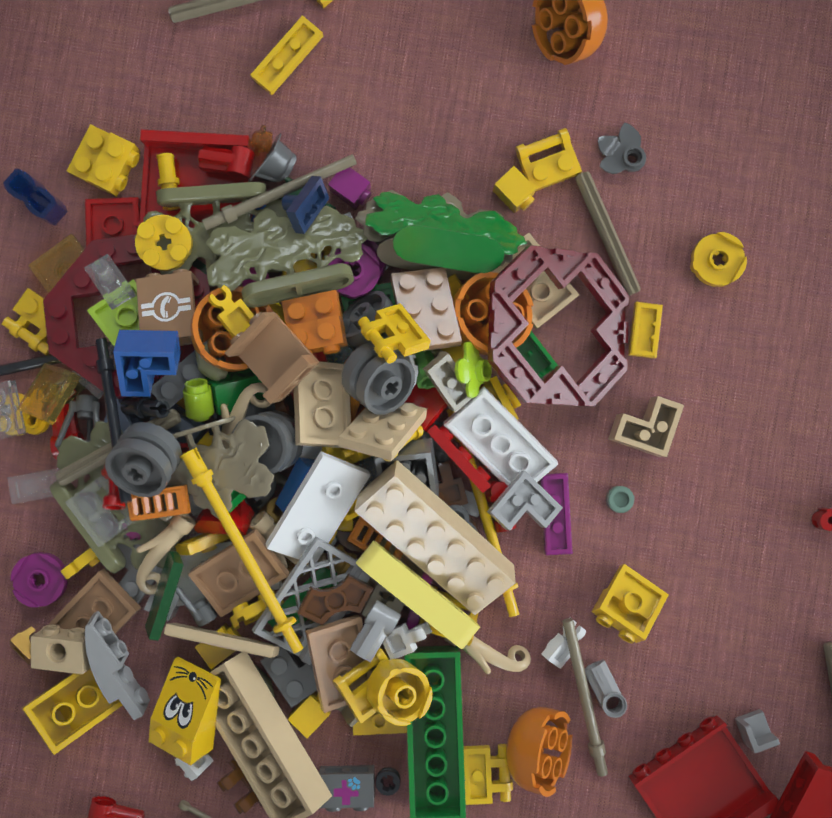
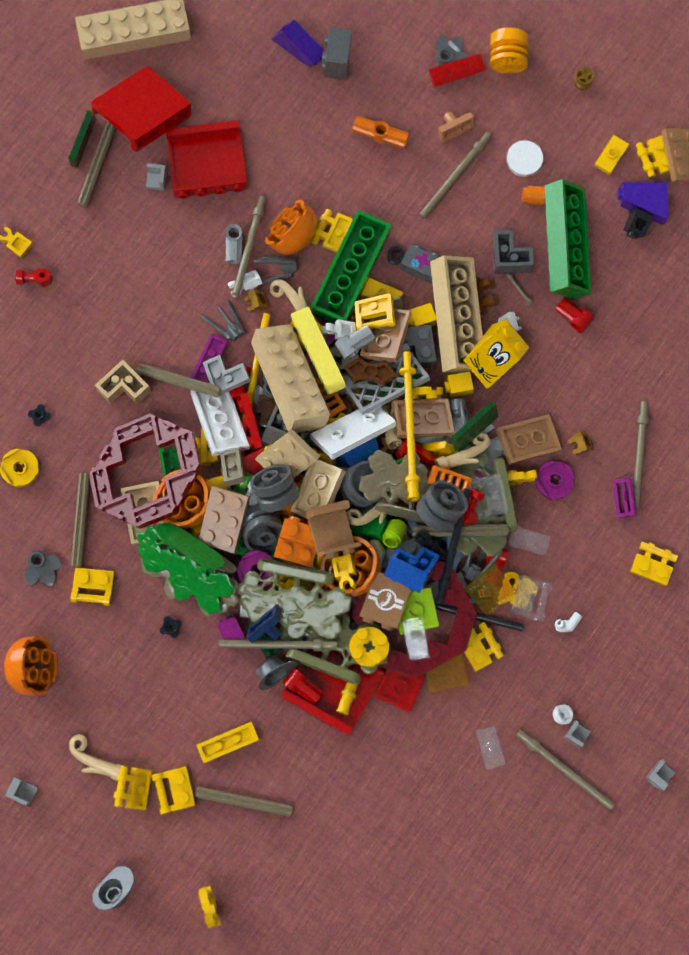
camera: 155 degrees left, 10 degrees down
(35, 197) = (438, 720): clear blue brick -> none
(49, 654) = (566, 427): tan brick -> none
(68, 710) = (568, 392): yellow slope -> none
(104, 160) = (385, 732): yellow plate -> none
(107, 660) = (530, 402): light grey slope -> none
(222, 640) = (452, 383): tan tile -> none
(262, 140) = (273, 691): clear orange plate -> none
(399, 691) = (357, 299): yellow brick -> none
(401, 331) = (245, 507): yellow plate -> none
(427, 151) = (165, 626): none -> black plate
(472, 370) = (214, 467): lime plate -> none
(515, 190) = (125, 576): yellow brick -> none
(522, 696) = (287, 265): none -> dark grey plant
(535, 628) = (257, 299): none -> pearl gold tile
(546, 573) = (234, 330): none -> dark grey plant
(579, 468) = (179, 380): none -> dark tan axle
(620, 499) = (163, 352): sand green tile -> none
(629, 605) = (192, 285): yellow plate -> none
(645, 330) = (90, 446): yellow plate -> none
(731, 345) = (39, 420): none -> black plate

